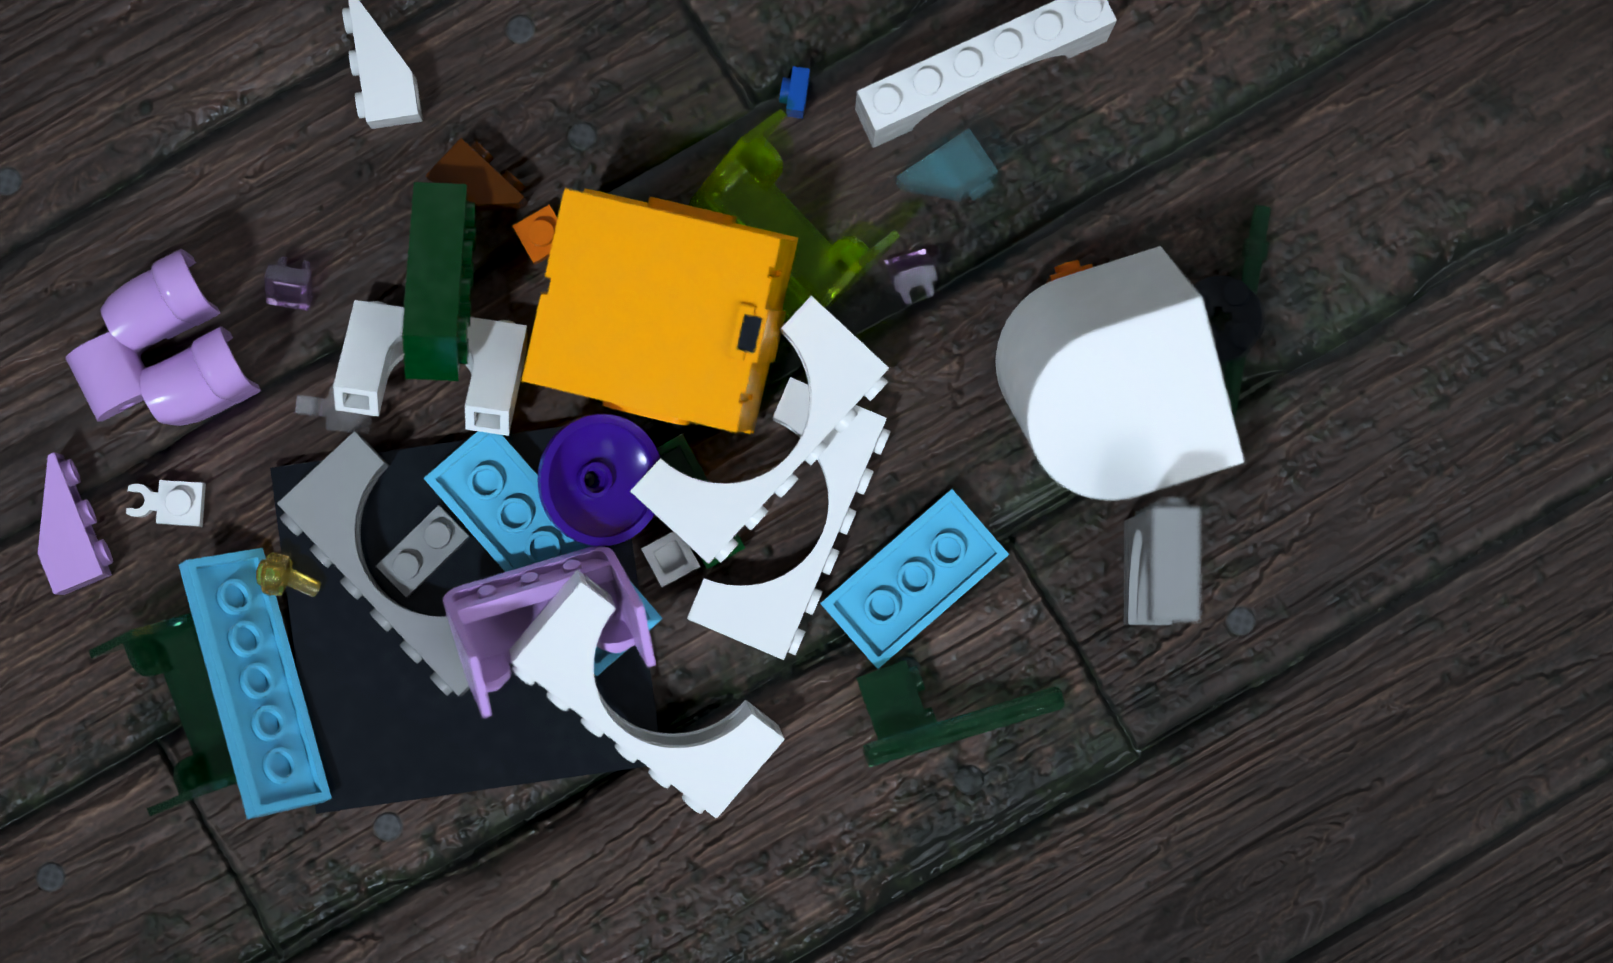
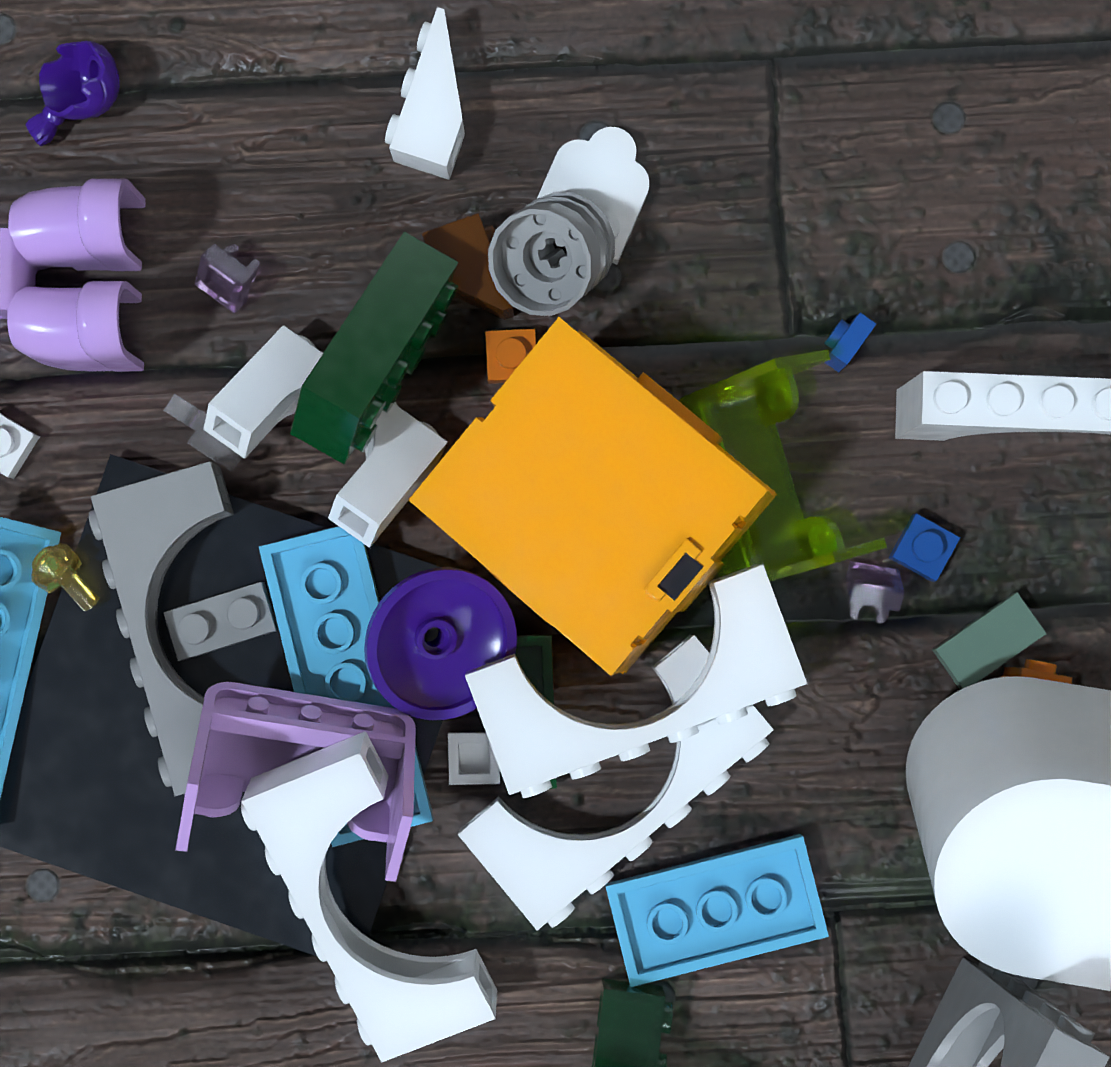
camera: 25 degrees right, 0 degrees up
(95, 197) = (74, 88): none -> dark purple hair
(529, 161) = (536, 274): none -> light grey wheel
(541, 76) = (605, 174): none -> white plate
(936, 221) = (924, 547): none -> blue plate
(952, 171) = (969, 504): clear light blue slope -> none
(1022, 266) = (989, 641): none -> sand green tile

